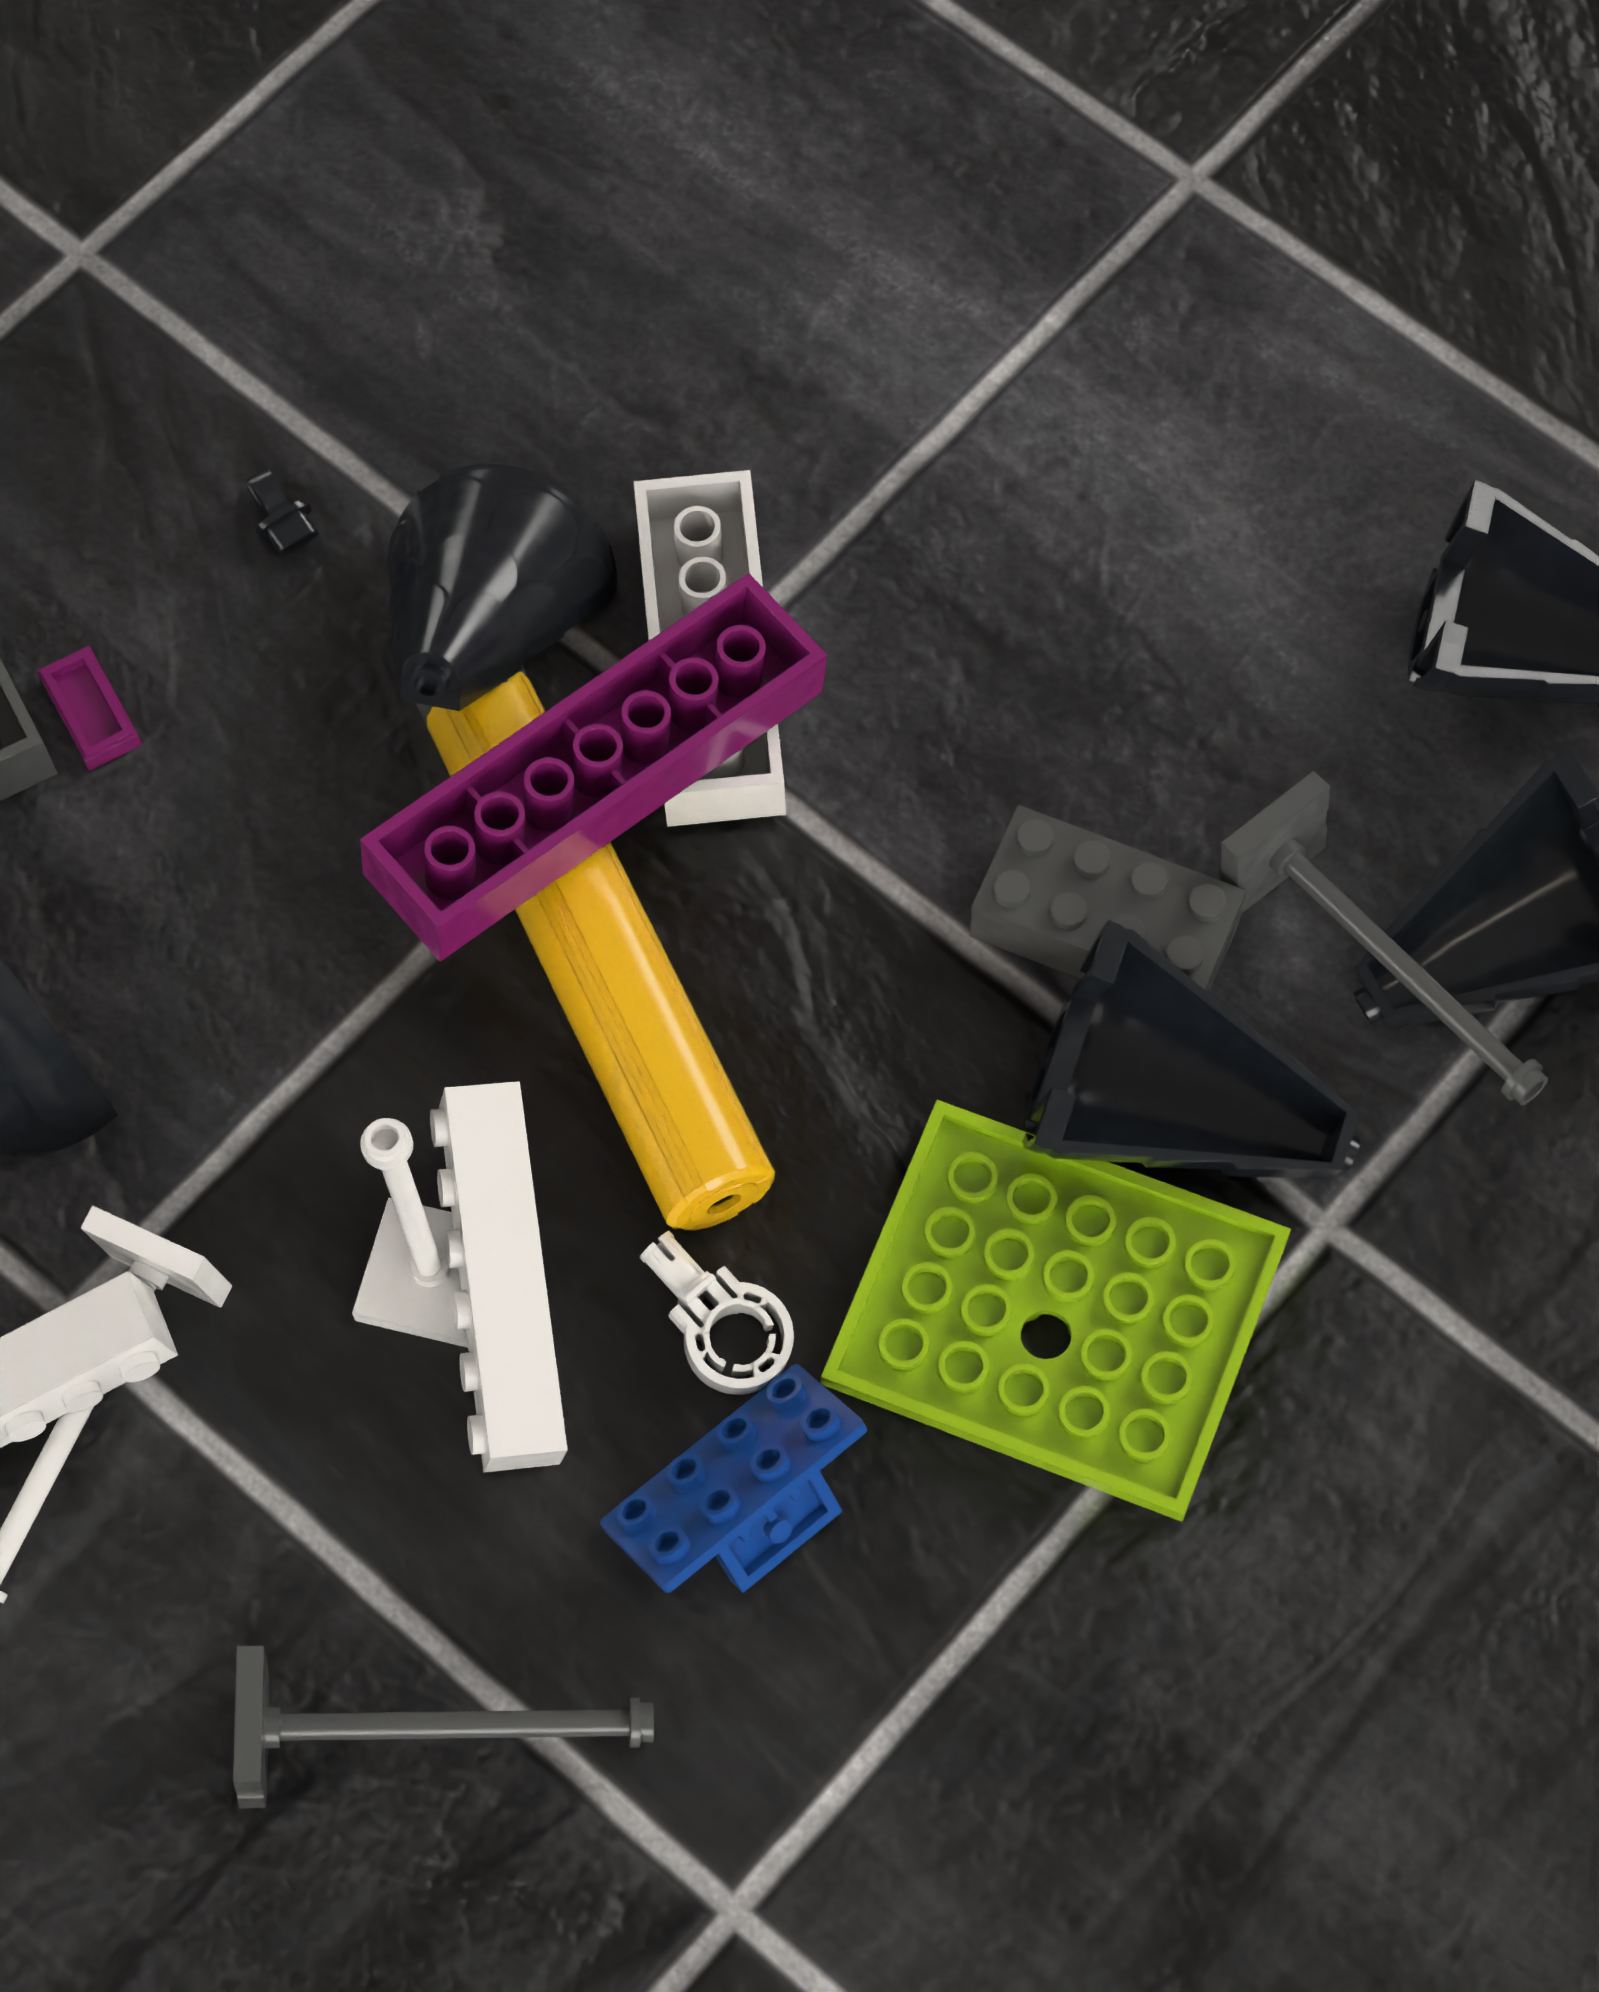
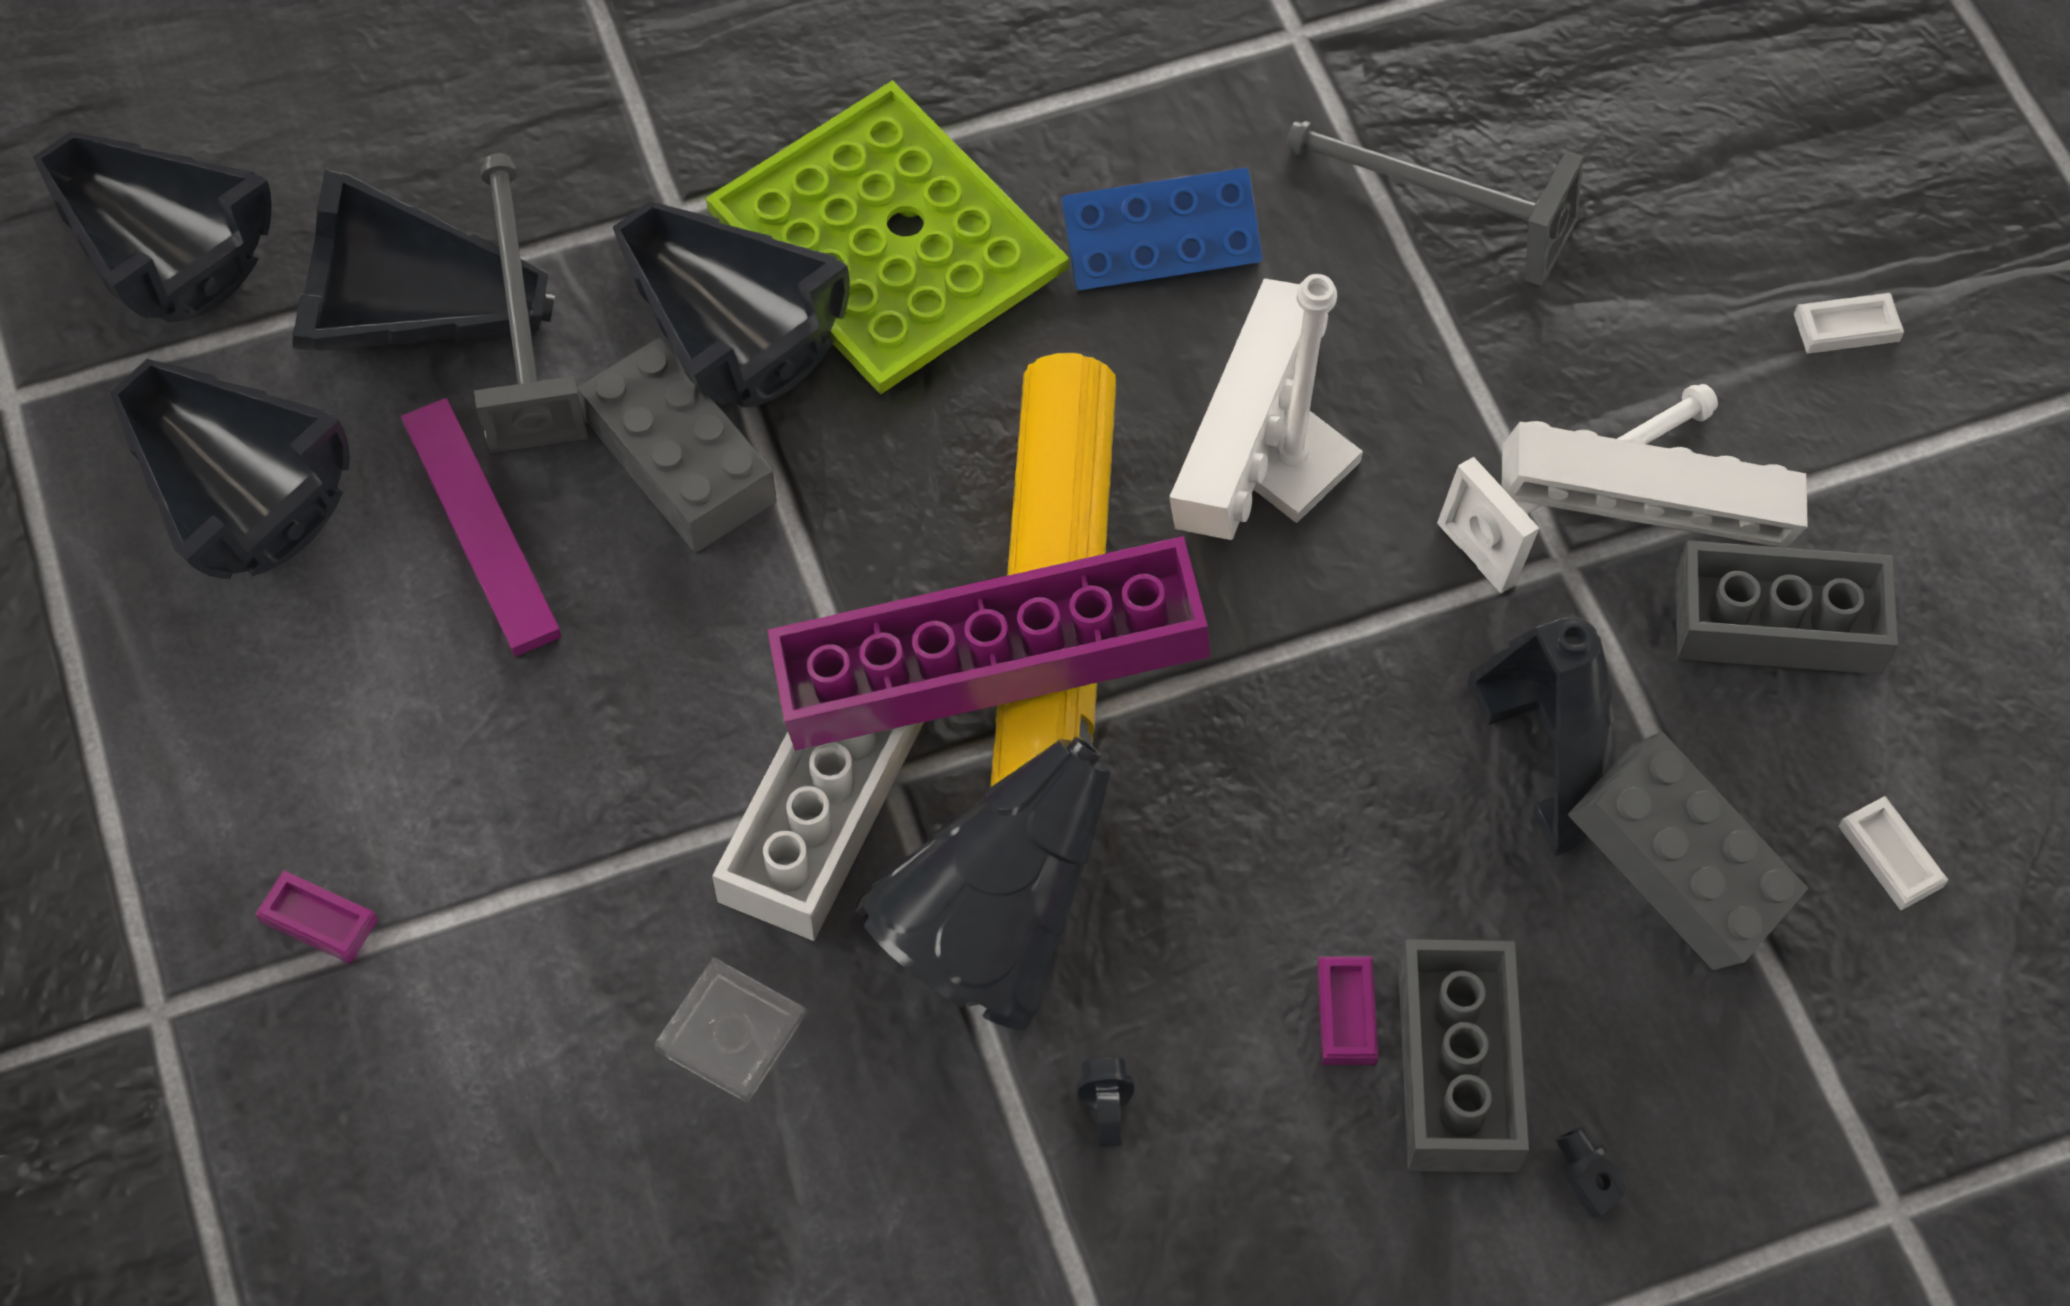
camera: 155 degrees left, 5 degrees down
(665, 405) = (730, 1029): none -> clear tile
(728, 1297) = (1113, 335): white pin -> none
(1114, 313) = (317, 917): none -> magenta tile
(1252, 739) = (481, 527): none -> magenta tile

